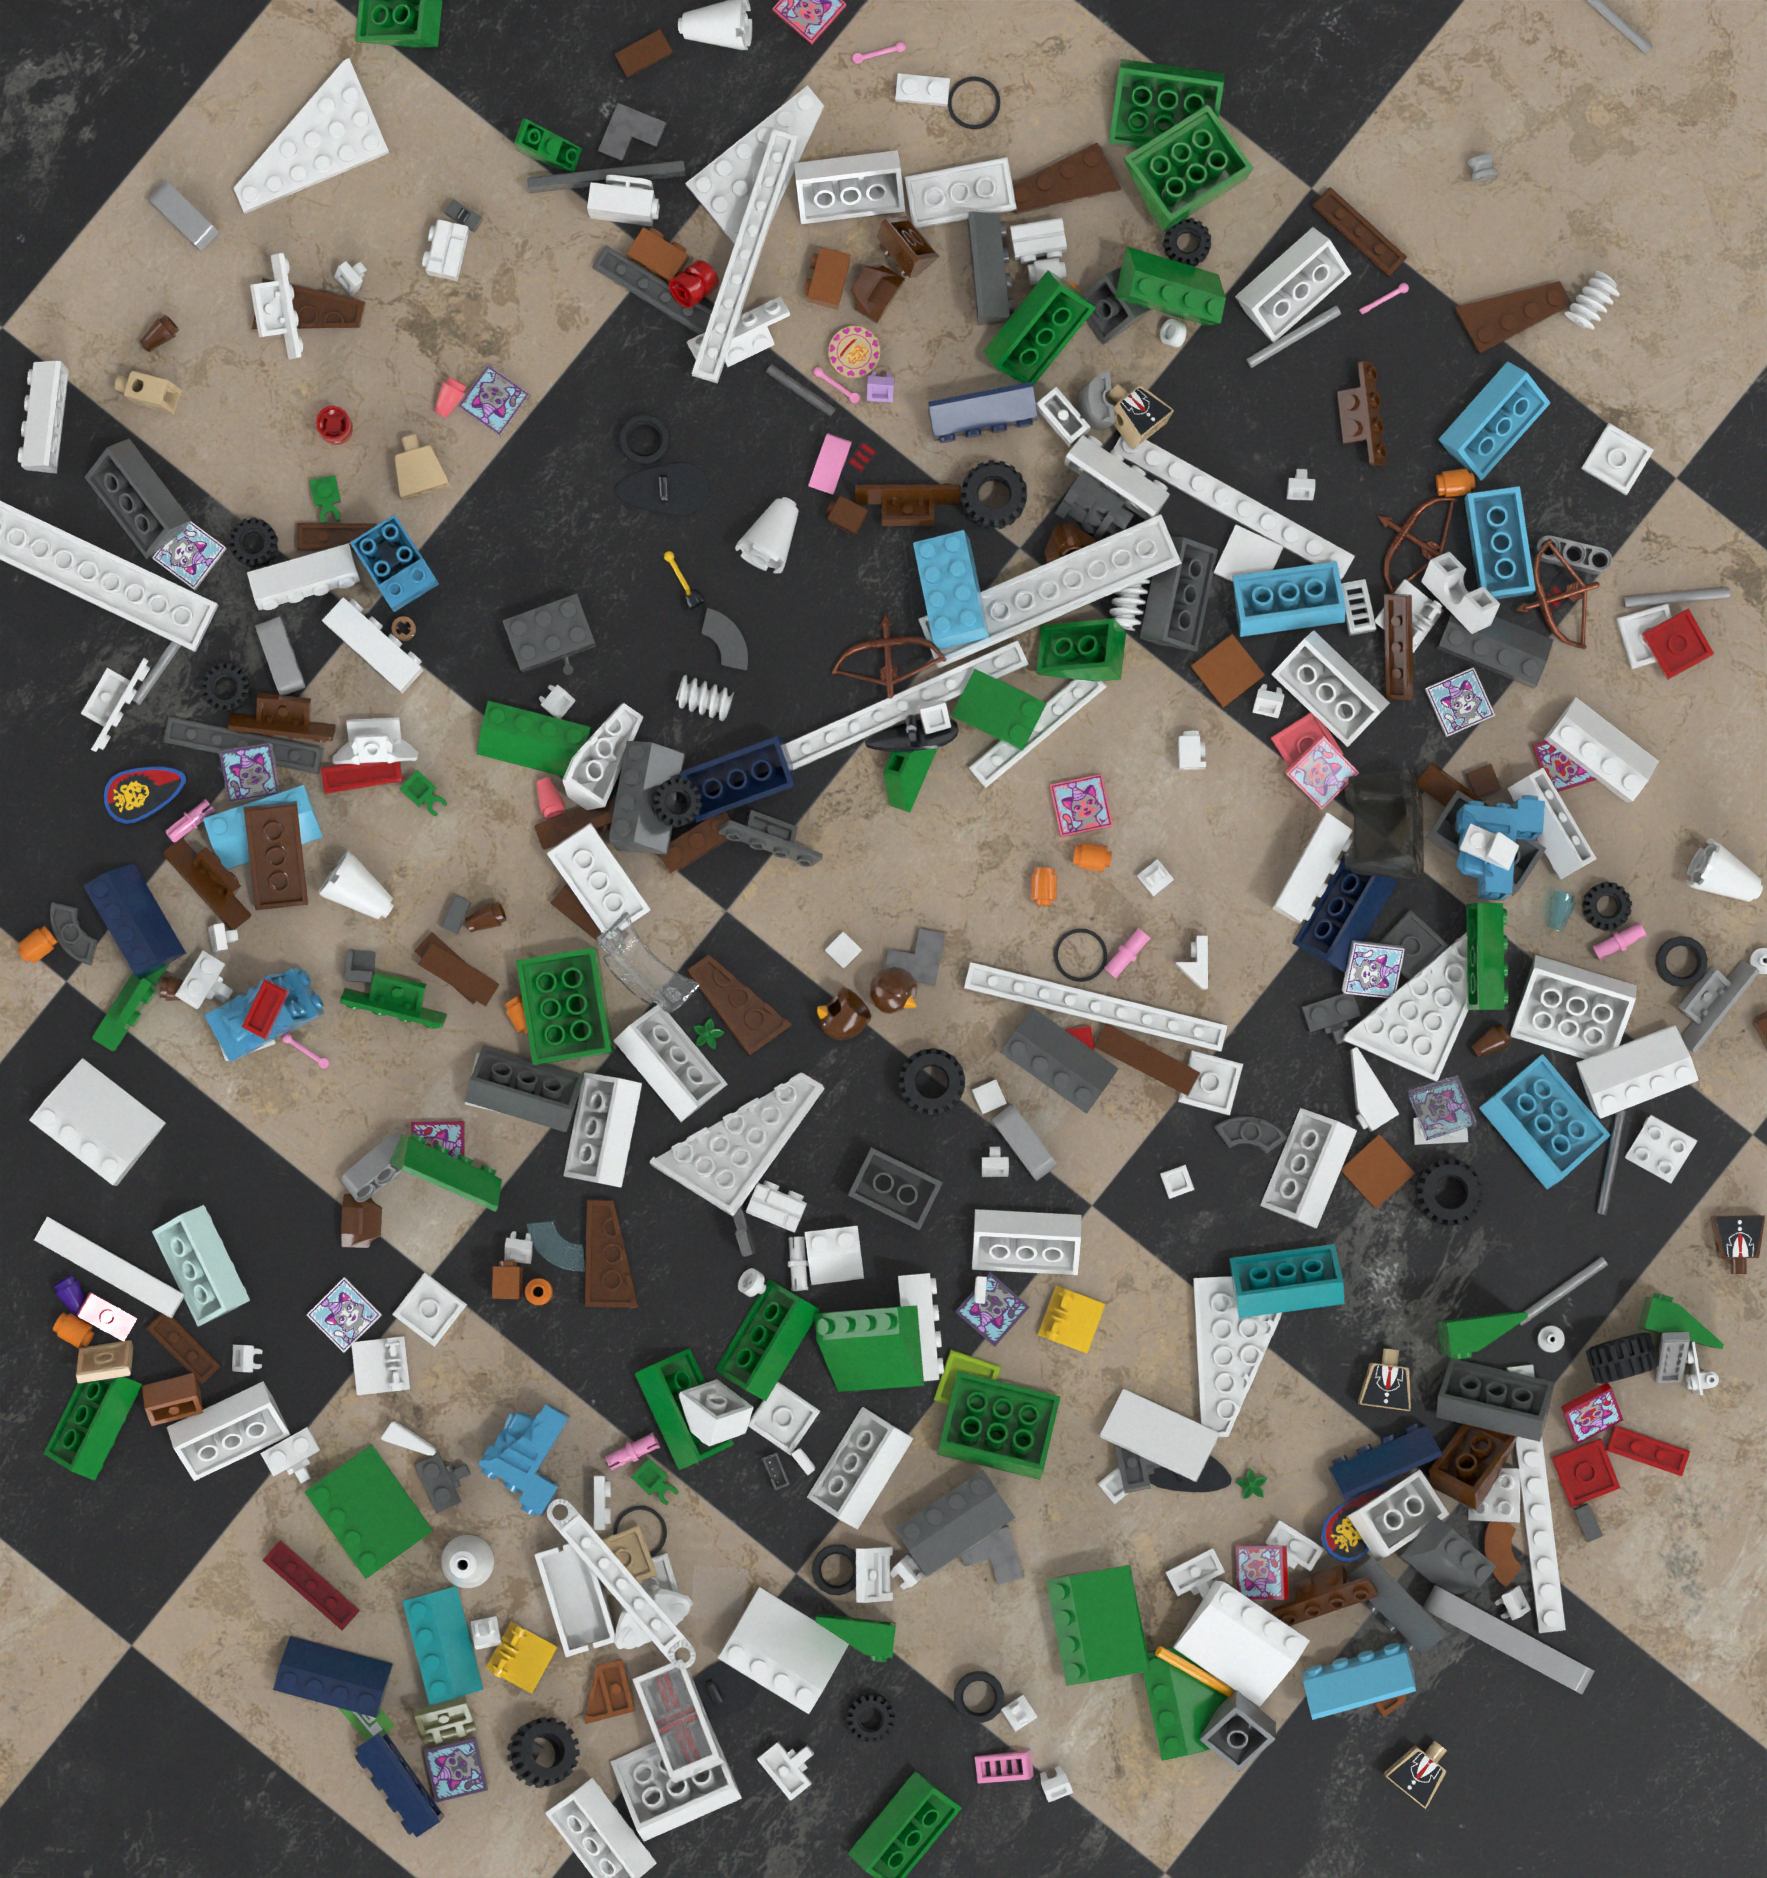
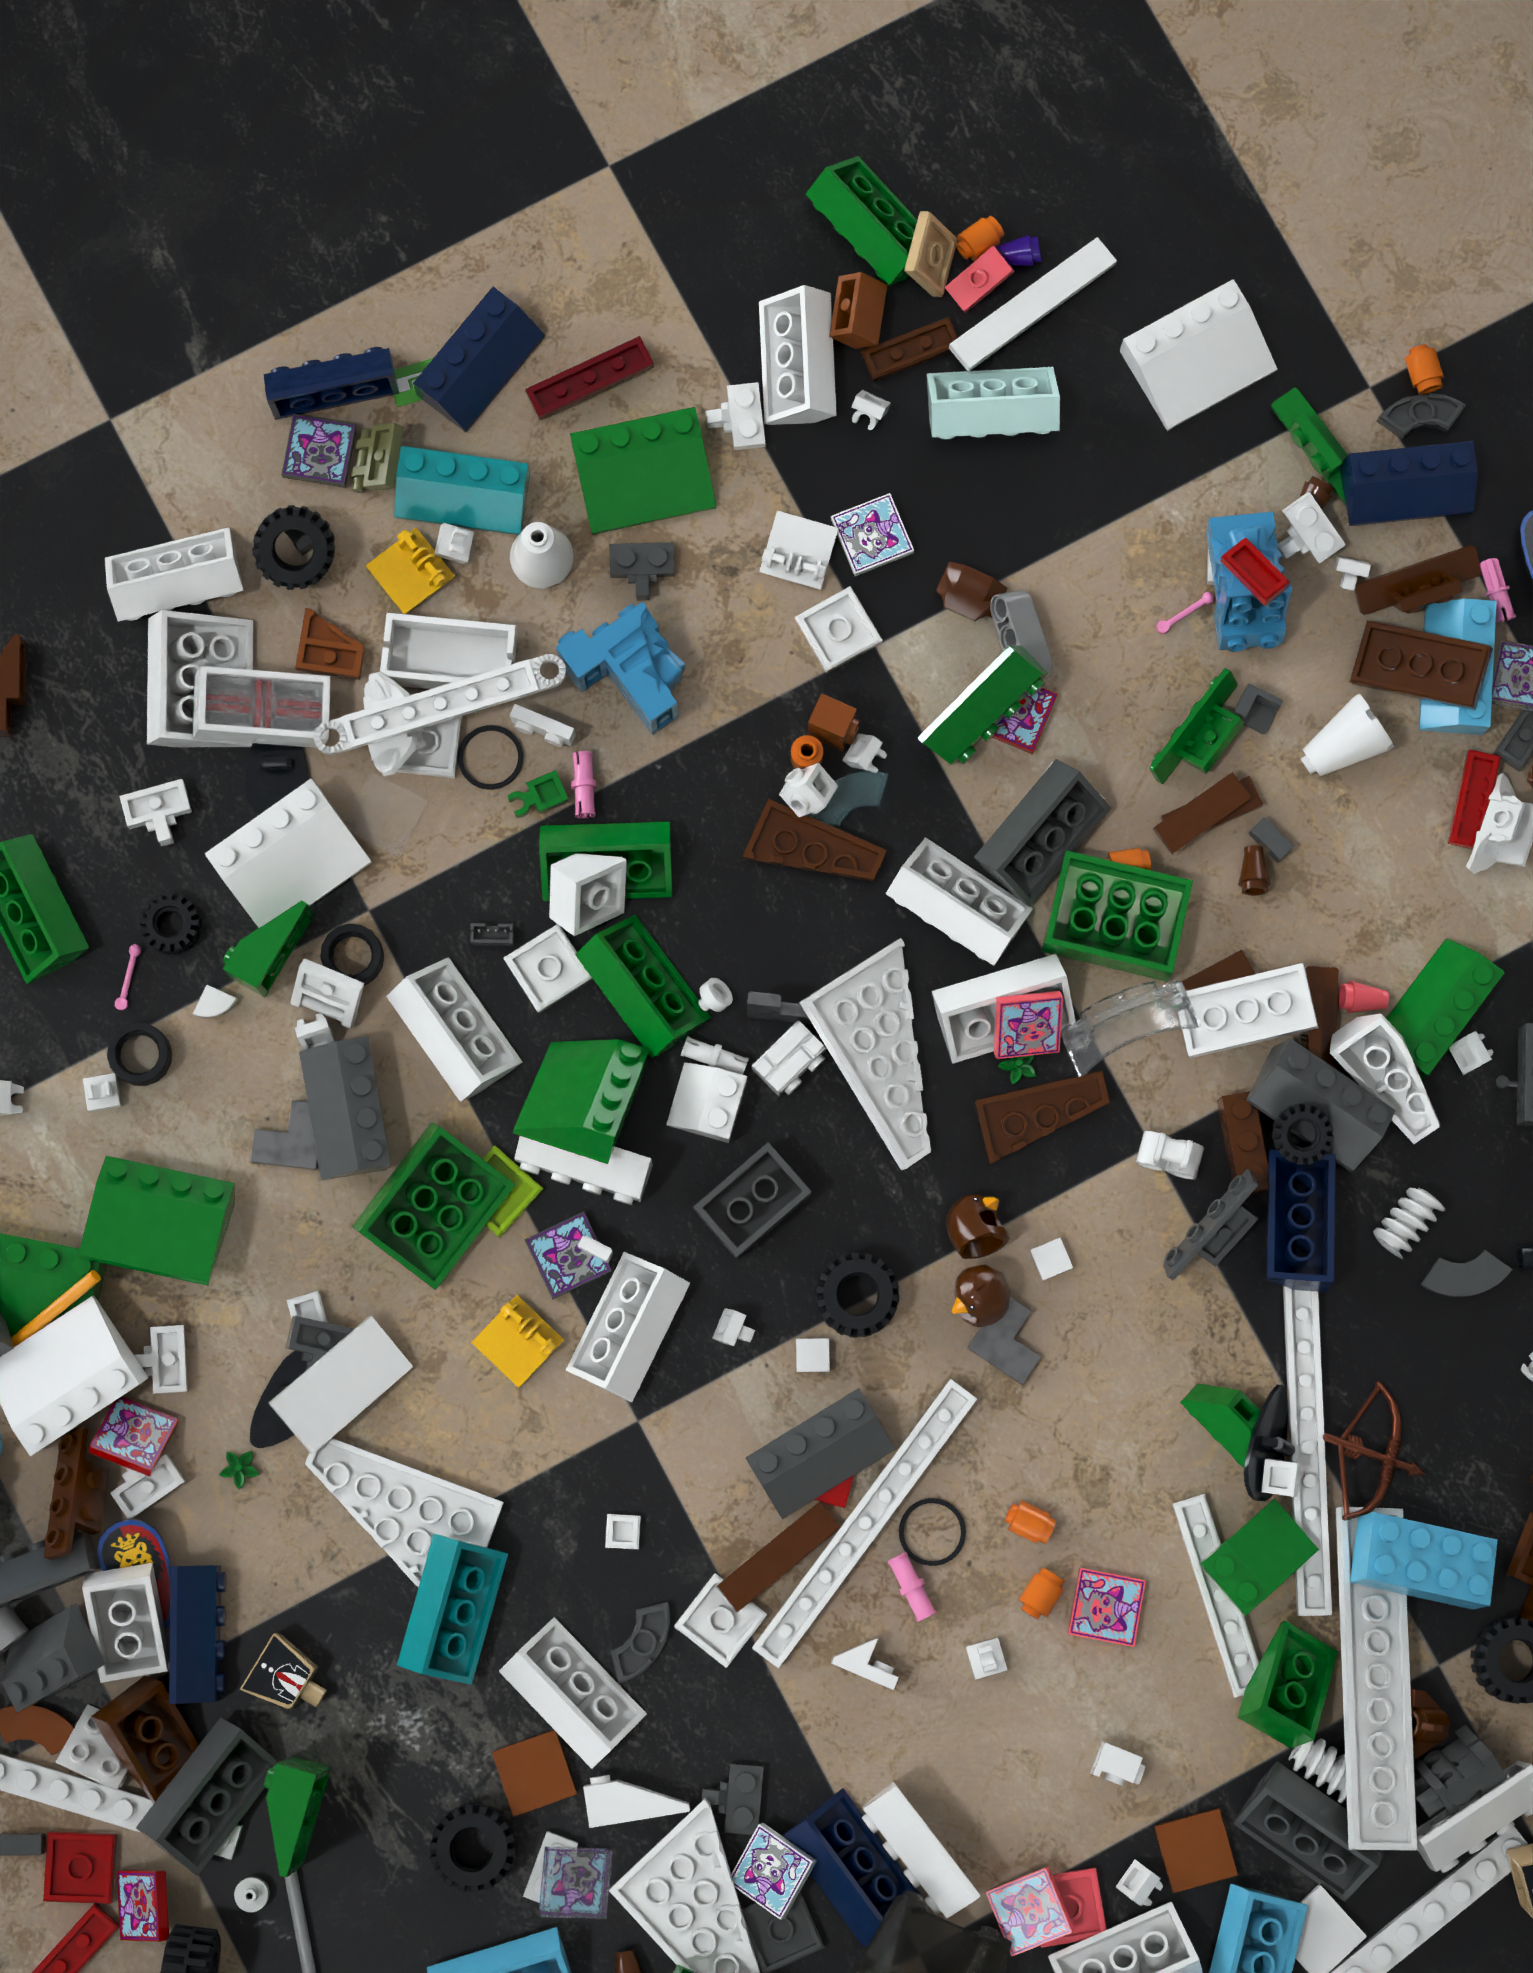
camera: 110 degrees right, 5 degrees down
(403, 1437) = (708, 542): white slope -> none
(421, 790) = (1428, 857): green plate -> none
(567, 1278) = (808, 789): none -> white brick
(633, 1553) = (470, 735): tan tile -> none
(676, 1039) = (1028, 1024): none -> tile
(729, 894) = (1170, 1155): none -> white piece
(803, 1461) = (489, 969): white tile -> none
(916, 1659) = (213, 1003): none -> white tile
(945, 1729) = (122, 1003): none -> bright pink hinge
(1005, 1776) = (51, 1077): bright pink slope -> none
(1024, 1142) = (743, 1372): light grey beam -> none

